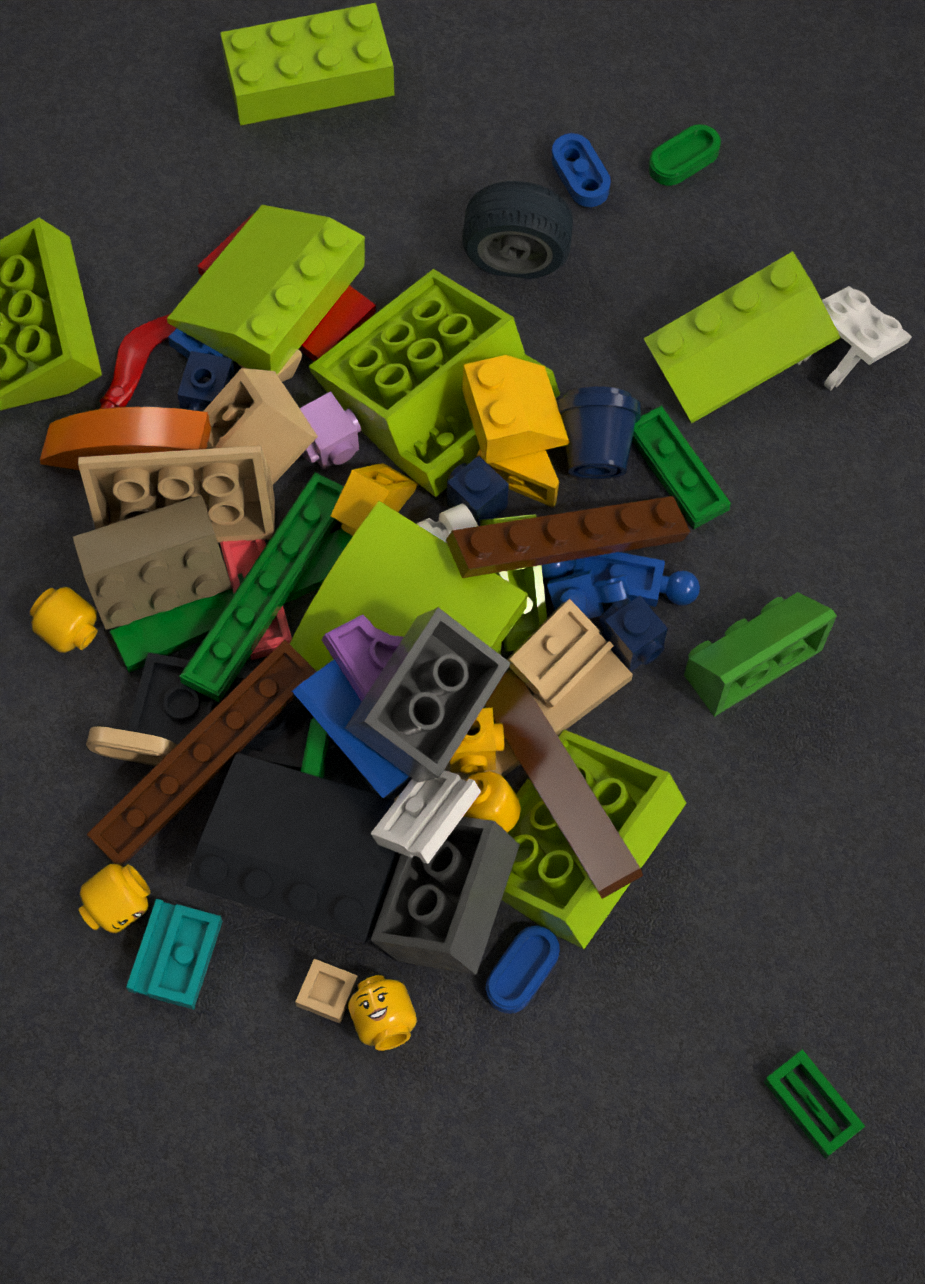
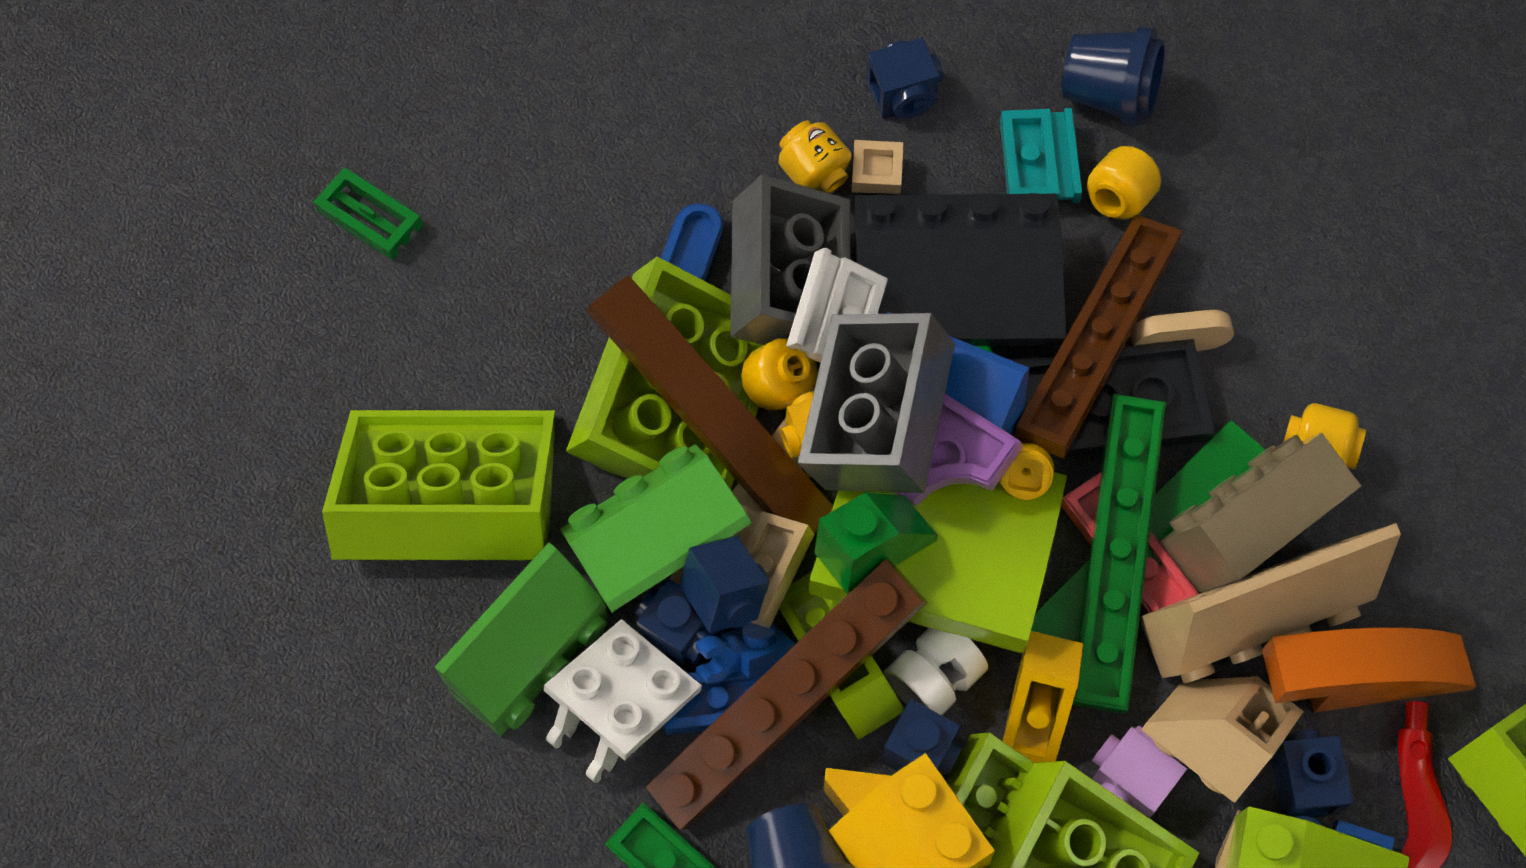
camera: 165 degrees right, 0 degrees up
(71, 1002) = (1115, 72): none -> dark blue piece
(265, 1073) = (904, 78): none -> dark blue brick
(311, 645) = (1029, 473): none -> yellow tile
(471, 594) = (866, 533): none -> green slope
(591, 618) = (724, 584): none -> dark blue brick
(631, 694) = (652, 524): none -> bright green slope
(692, 588) = (621, 692): none -> white plate
(795, 813) = (442, 485): none -> lime slope

